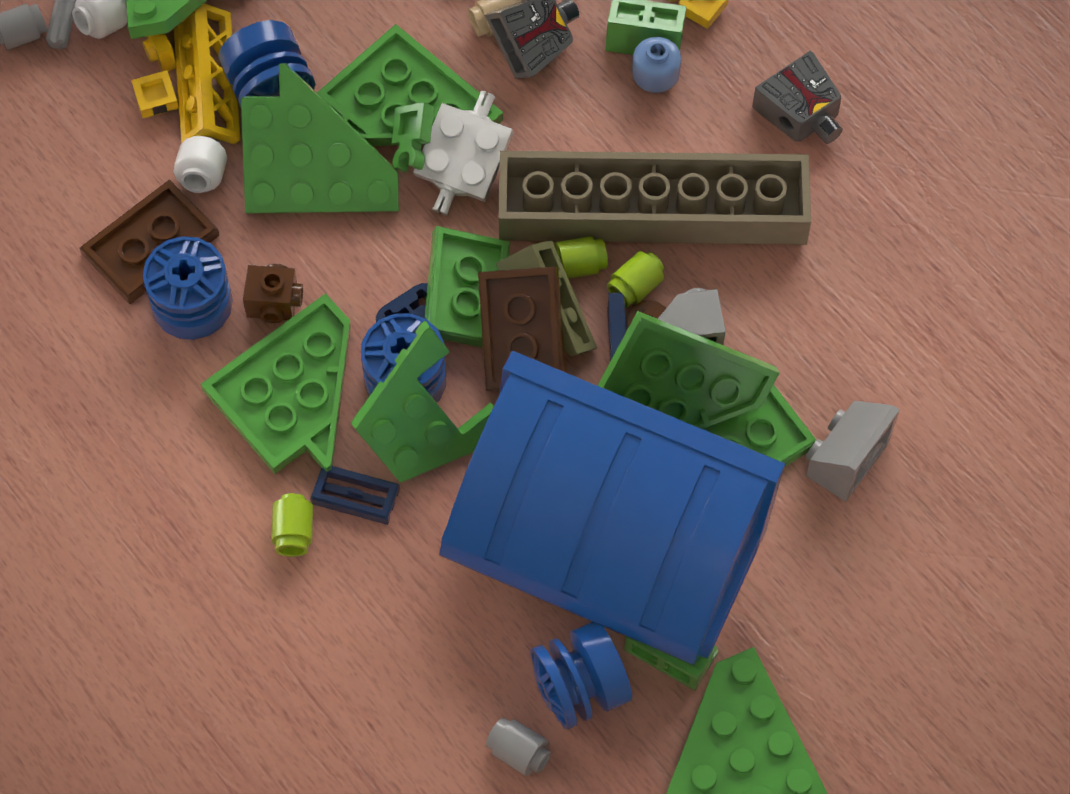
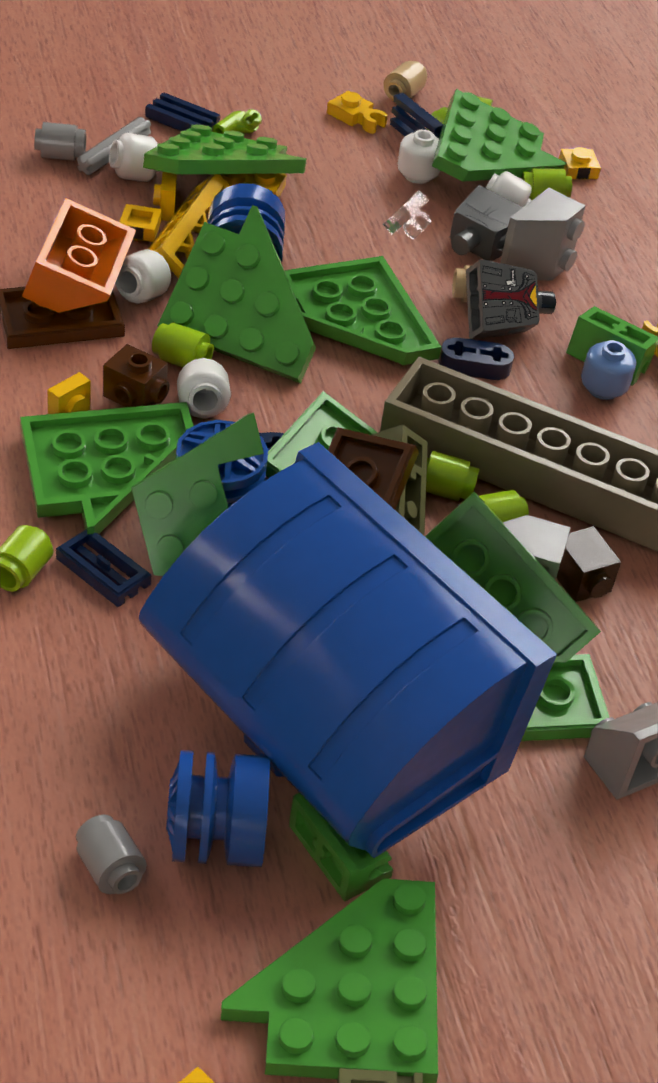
camera: 20 degrees right, 20 degrees down
(144, 185) = (78, 259): none -> orange slope
(190, 306) = (61, 337): blue wheel -> none
(228, 342) = (70, 395): none -> yellow plate
(283, 228) = (181, 344): none -> lime brick
(330, 268) = (204, 388): none -> white head
(411, 130) = (345, 319): bright green plate -> none
(464, 152) = (381, 355): white plate -> none
(535, 103) = (477, 358): none -> dark blue beam
(736, 293) = (587, 565): none -> dark brown brick

